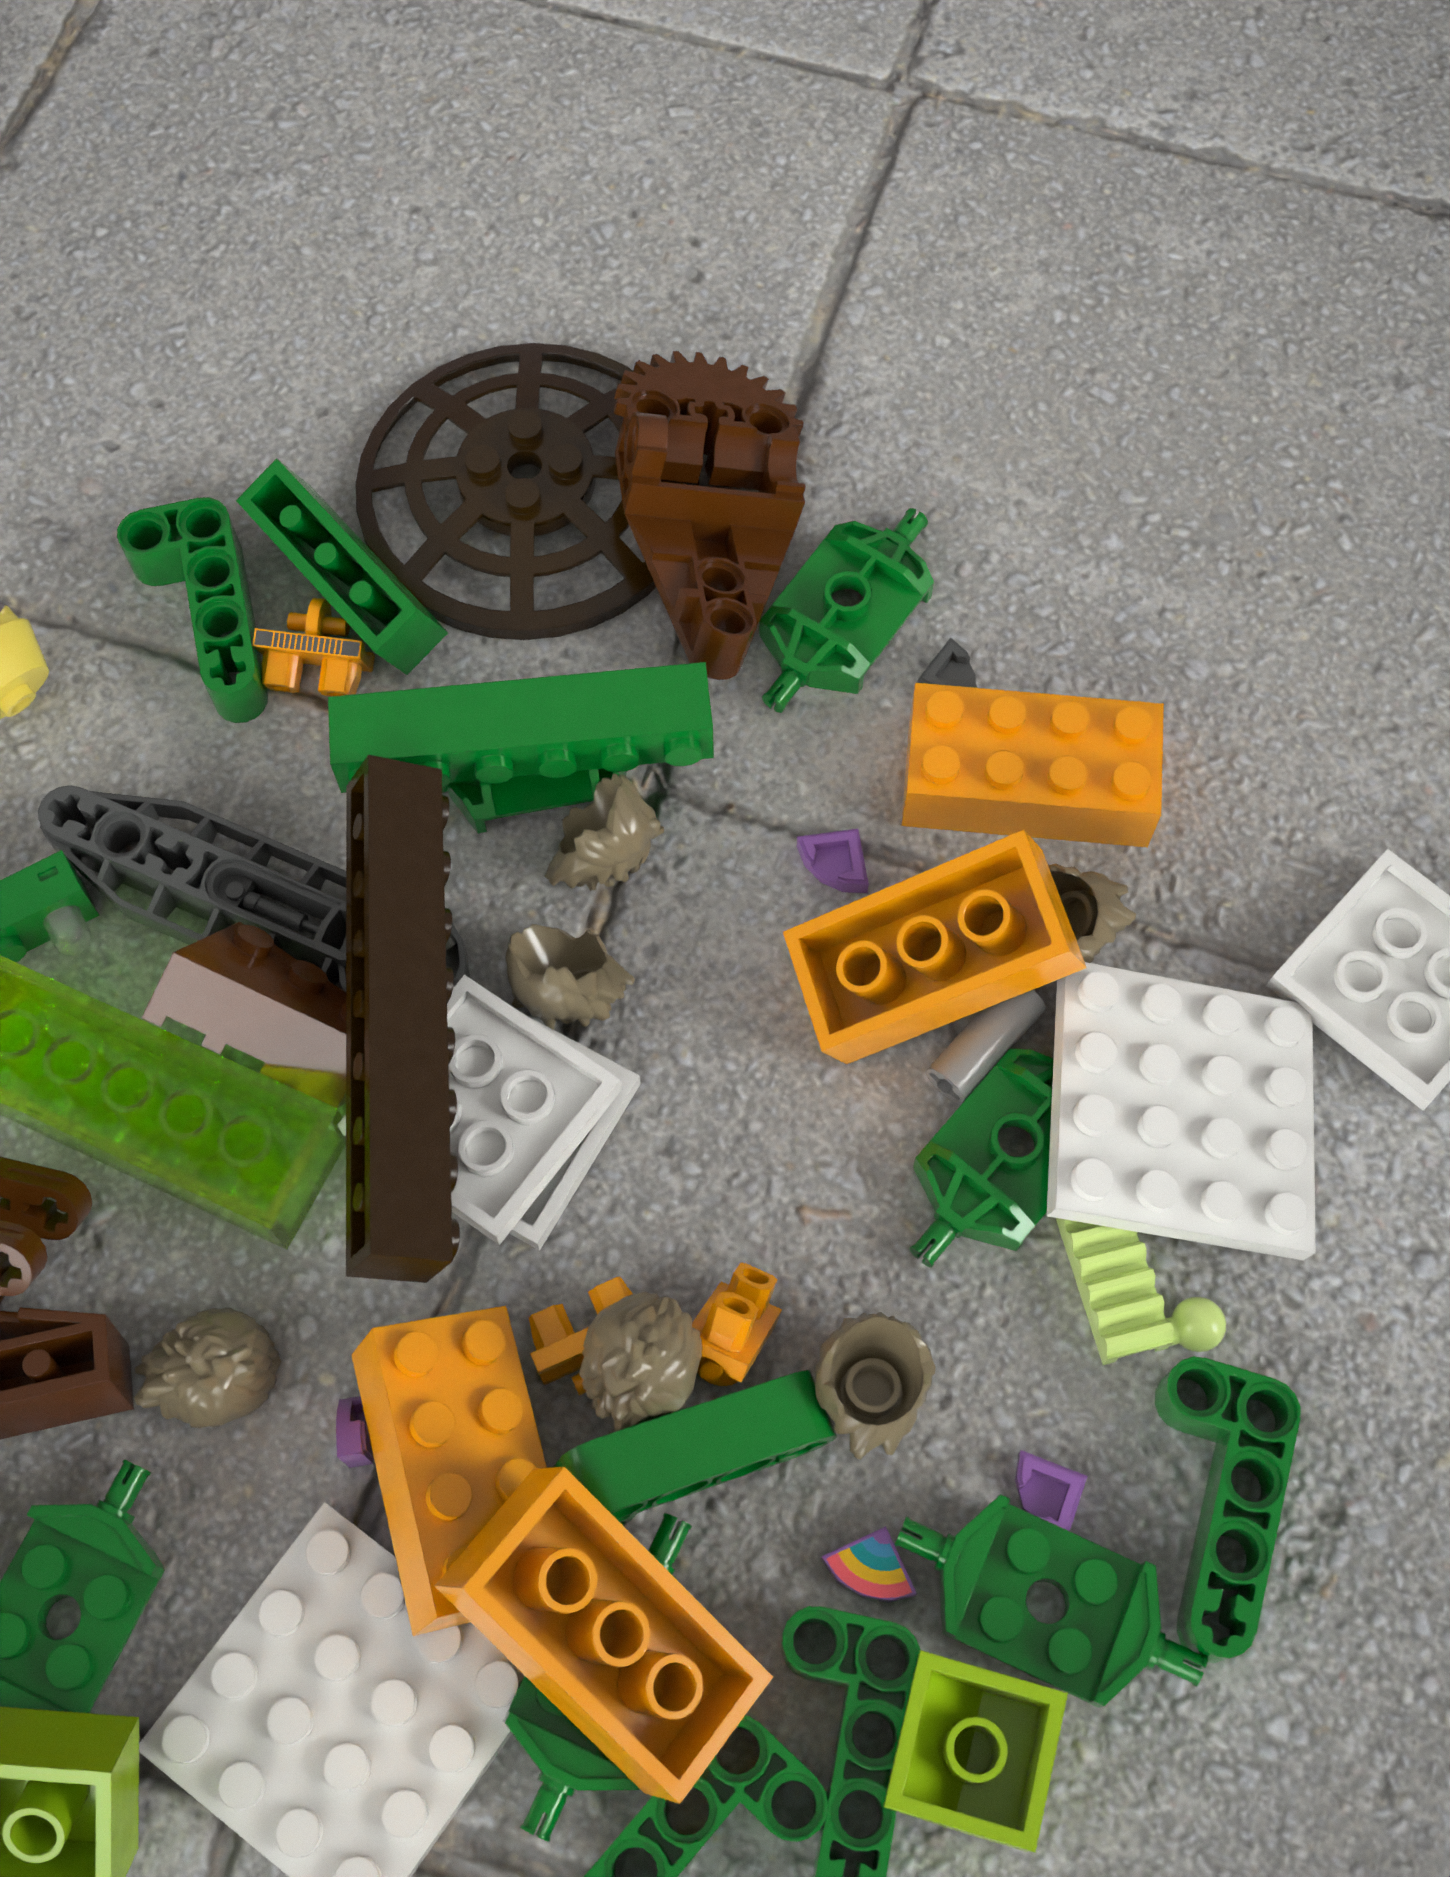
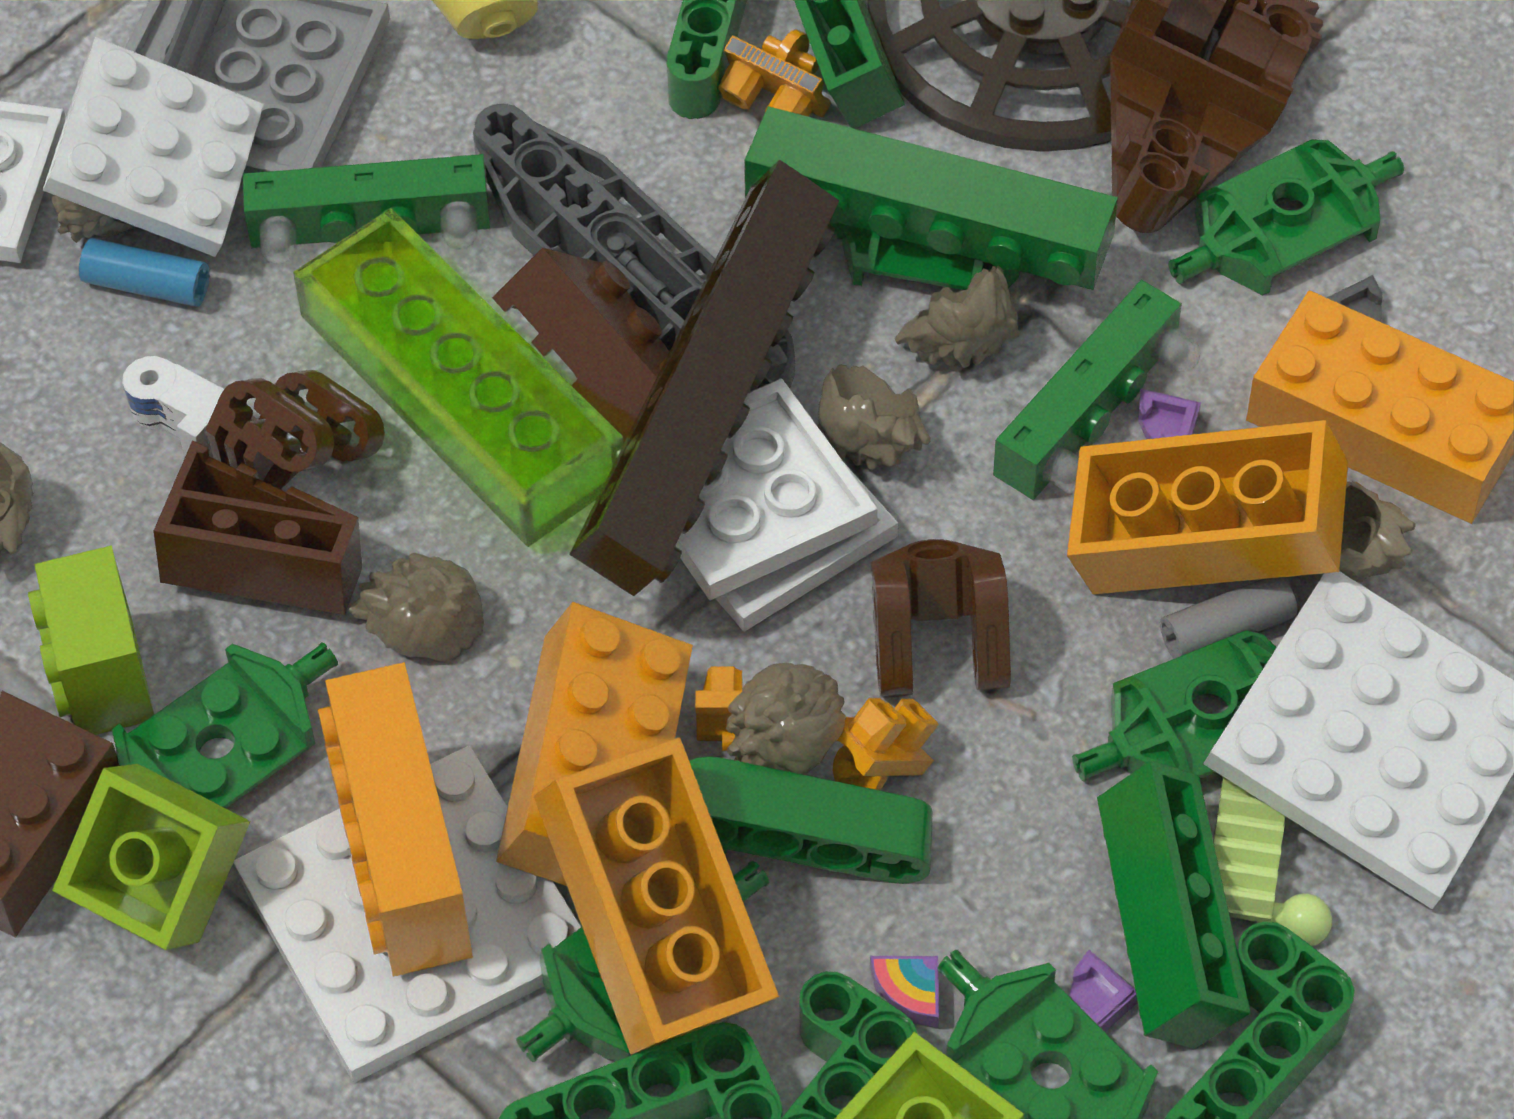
camera: 25 degrees right, 10 degrees down
(294, 1658) = (394, 820): none -> light orange brick
(352, 1434) = (514, 706): medium lavender tile -> none
(709, 1124) = (940, 583): none -> reddish brown piece
(747, 873) = (1084, 392): none -> green piece
(873, 1380) = (983, 830): dark tan hair -> none
(1085, 1377) = (1172, 905): none -> green brick

